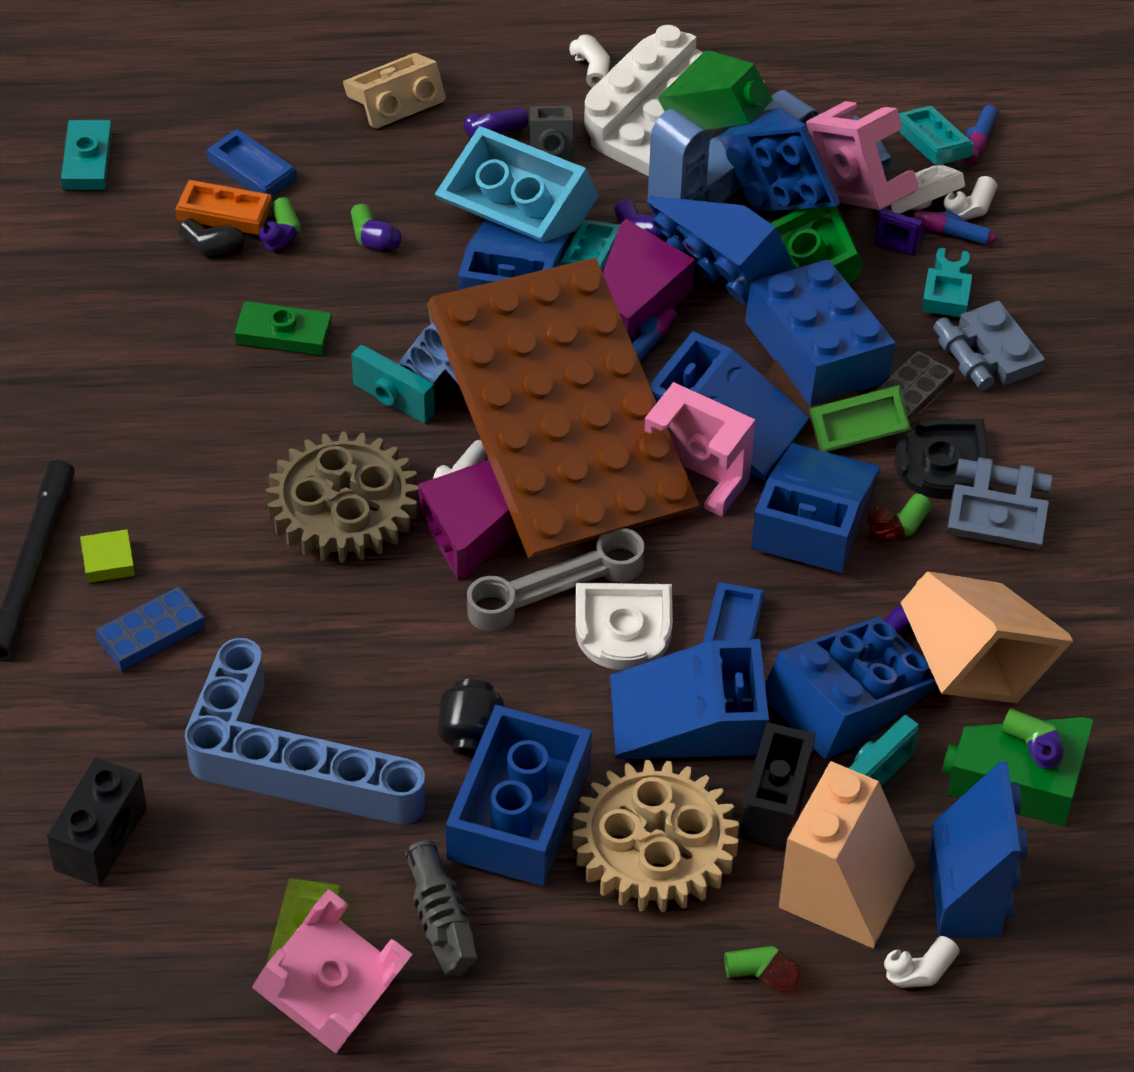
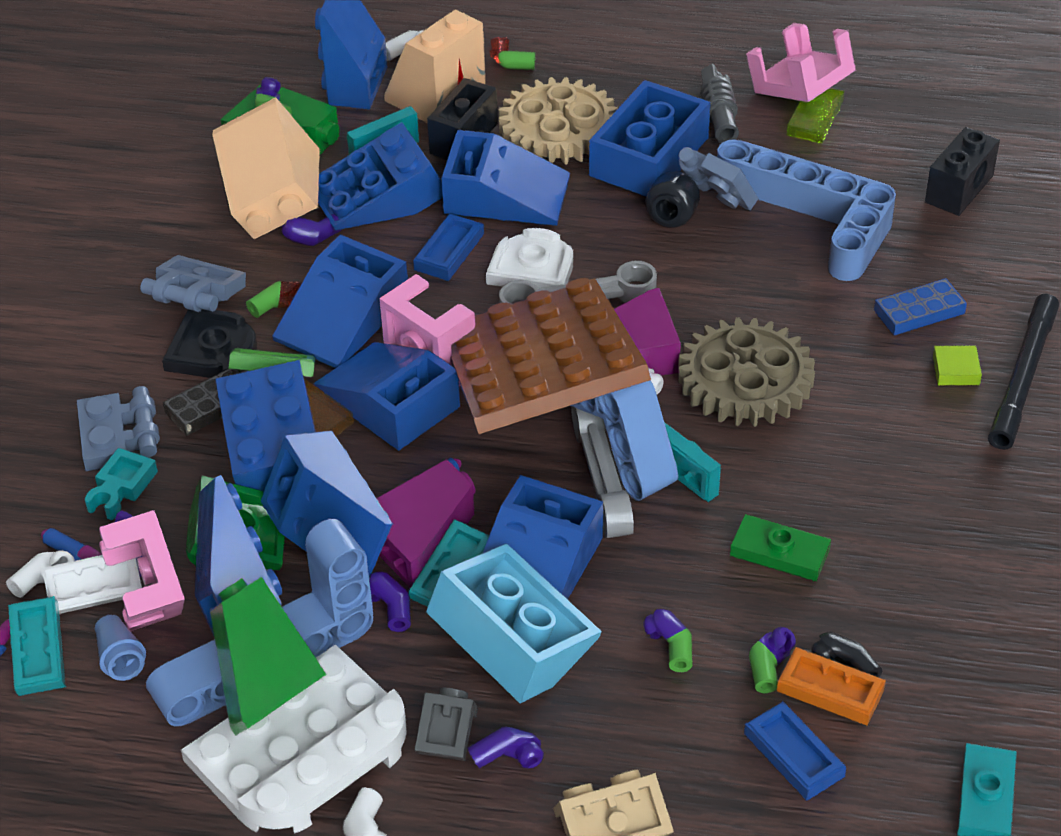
camera: 165 degrees left, 5 degrees down
(402, 718) = (720, 175): none -> sand blue plate

